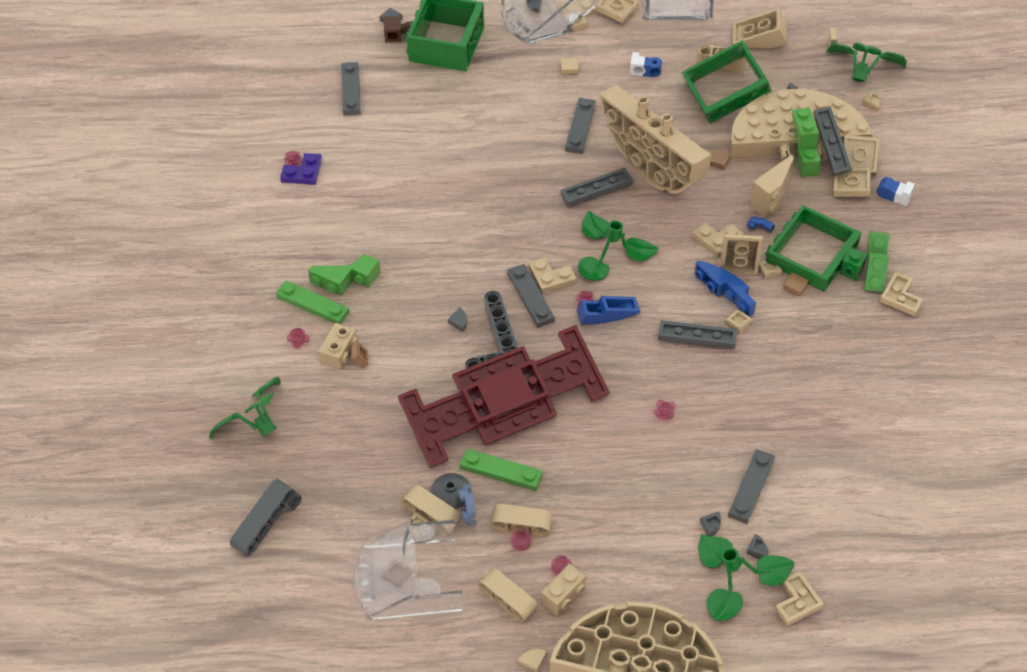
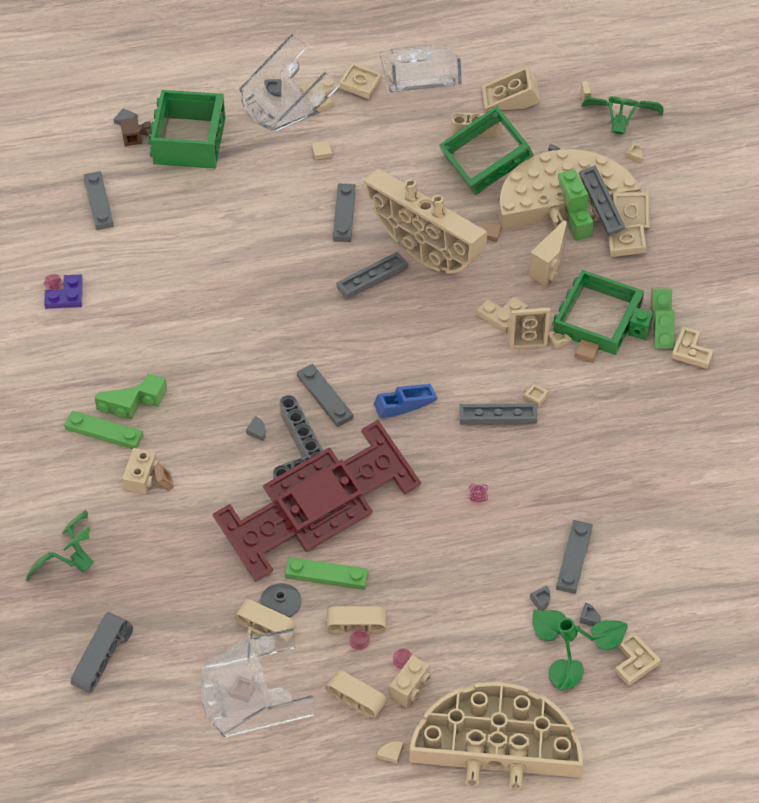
camera: 10 degrees left, 0 degrees up
(300, 334) = (96, 463): clear pink plate -> none
(469, 506) = (303, 612): sand blue plate -> none
(550, 279) = (339, 376): tan plate -> none
(584, 295) = (379, 388): clear pink plate -> none
(597, 227) = (378, 317): green plant -> none
(645, 66) = (400, 142): leg -> none
(723, 282) = (514, 357): blue slope -> none
(762, 222) = (543, 291): blue arm -> none
(895, 191) = (671, 244): leg -> none

